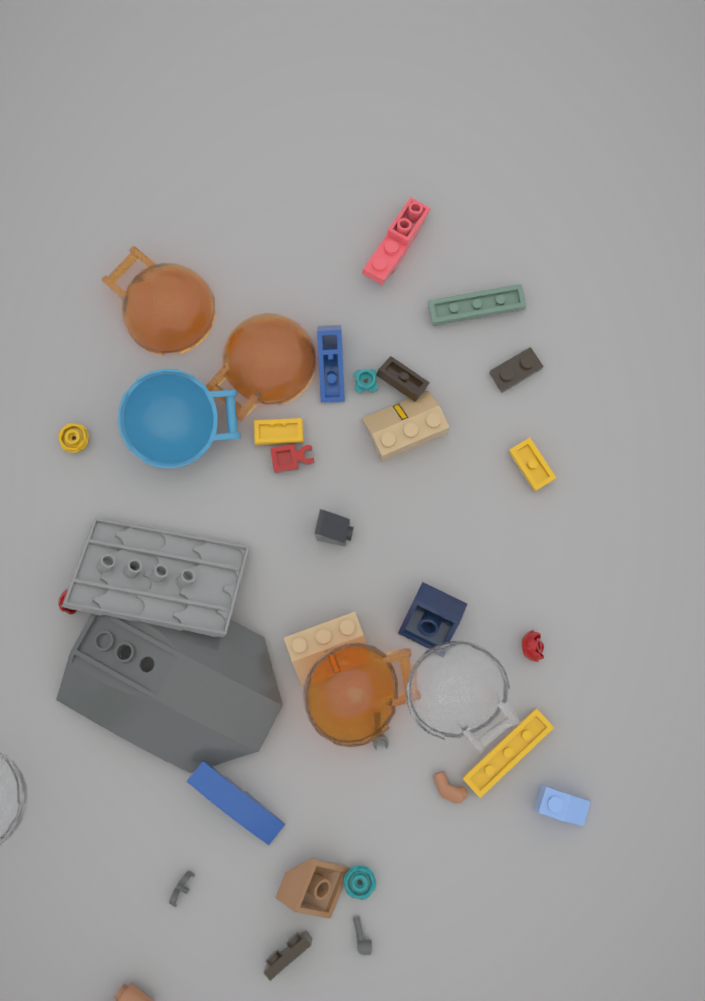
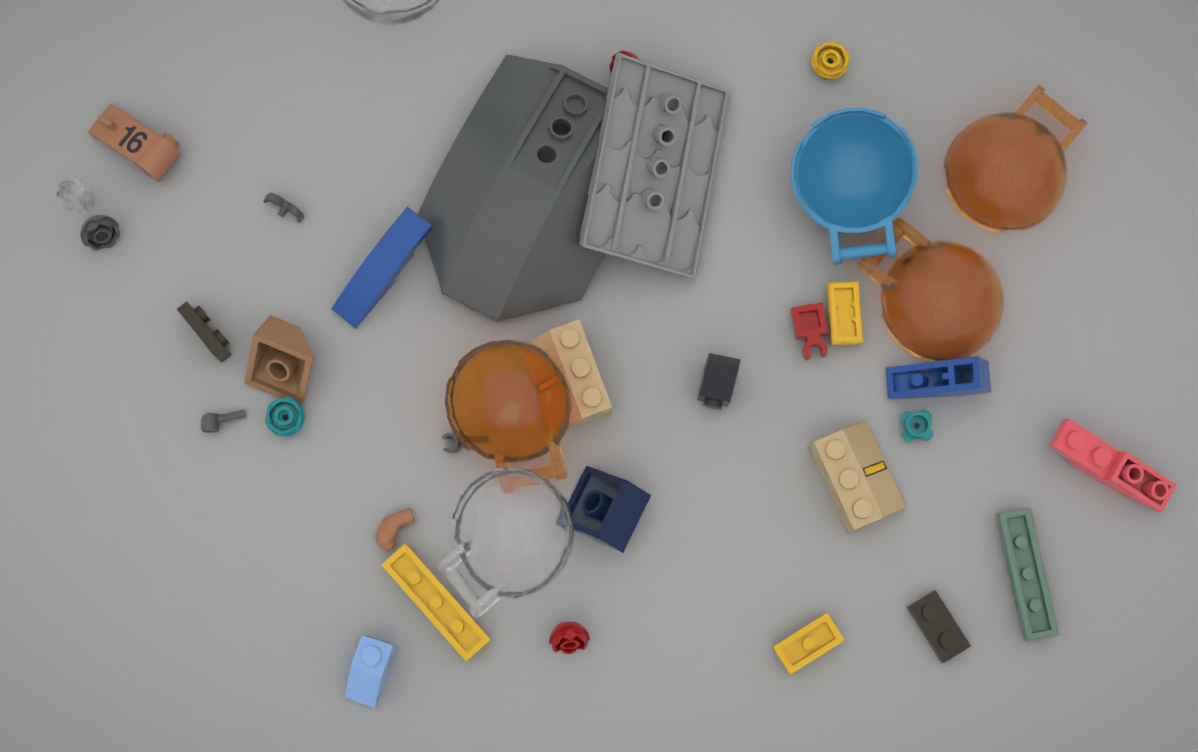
camera: 85 degrees right, 0 degrees up
(402, 378) = (920, 473): dark brown plate -> none

